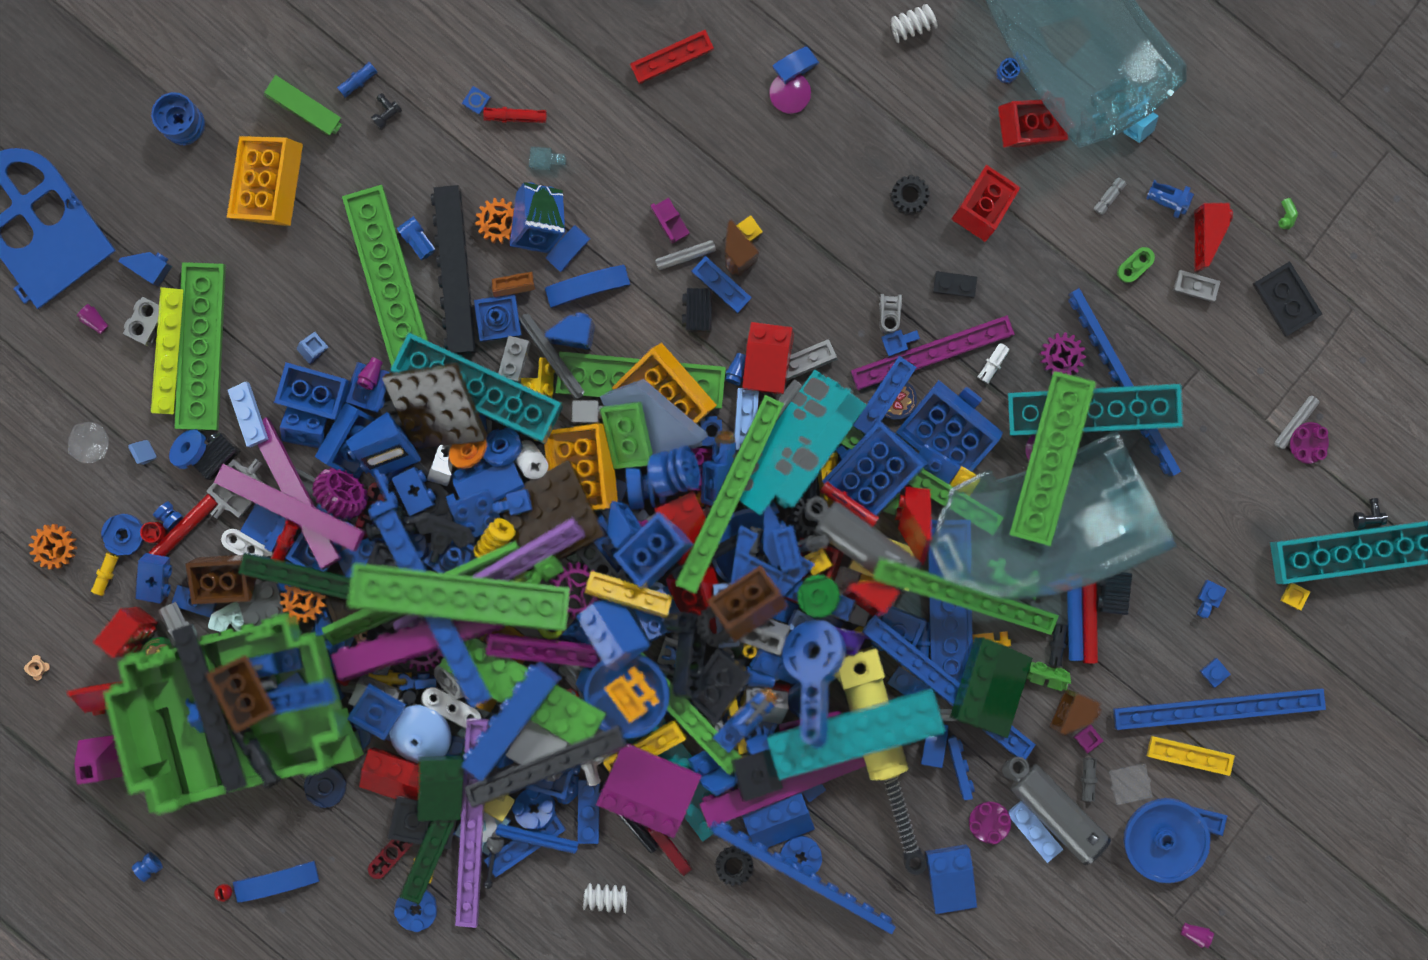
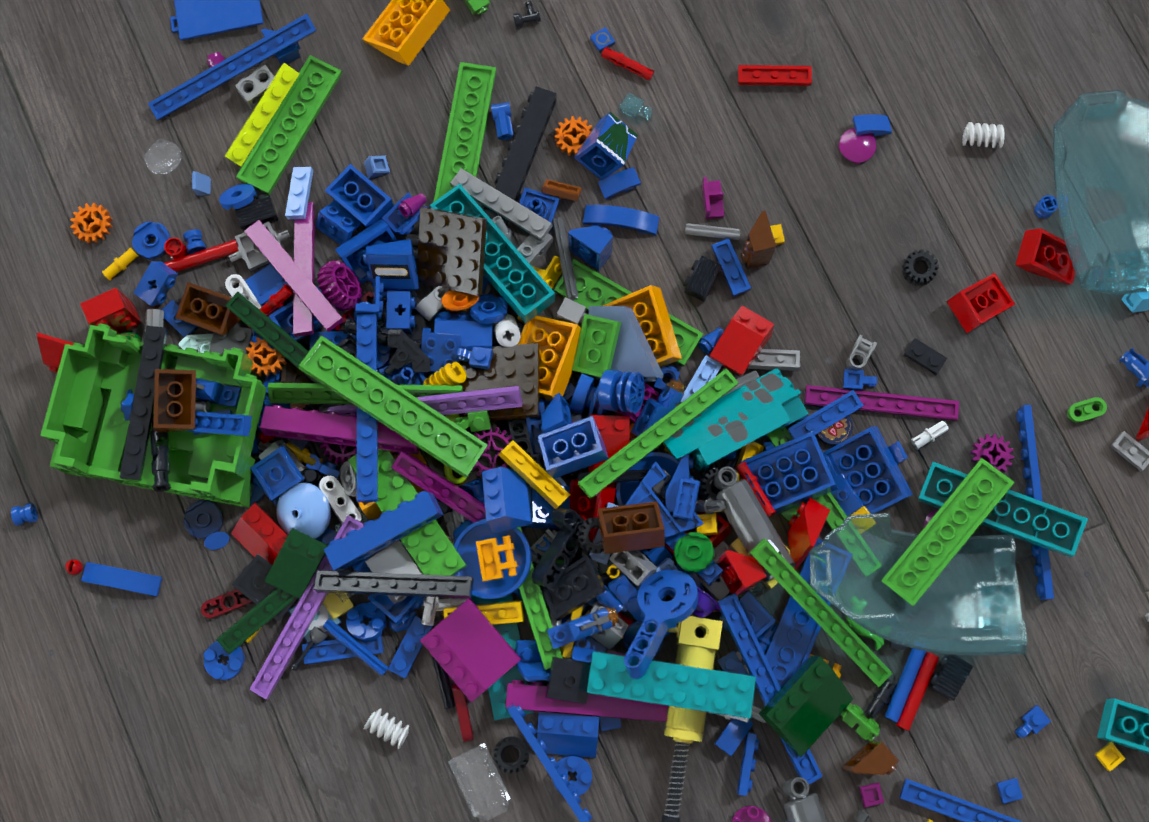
camera: 25 degrees right, 10 degrees down
(30, 667) = (26, 307): light nougat plate -> none
(97, 760) = (29, 407): magenta slope -> none
(110, 315) = (232, 67): none -> blue plate
(348, 800) = (216, 540): none -> blue sticker
(460, 331) = (503, 205): none -> light grey plate
(479, 358) = (505, 230): none -> light grey pin
(717, 905) = (480, 782): none -> clear slope
(1110, 196) = (1088, 344): light grey axle -> none

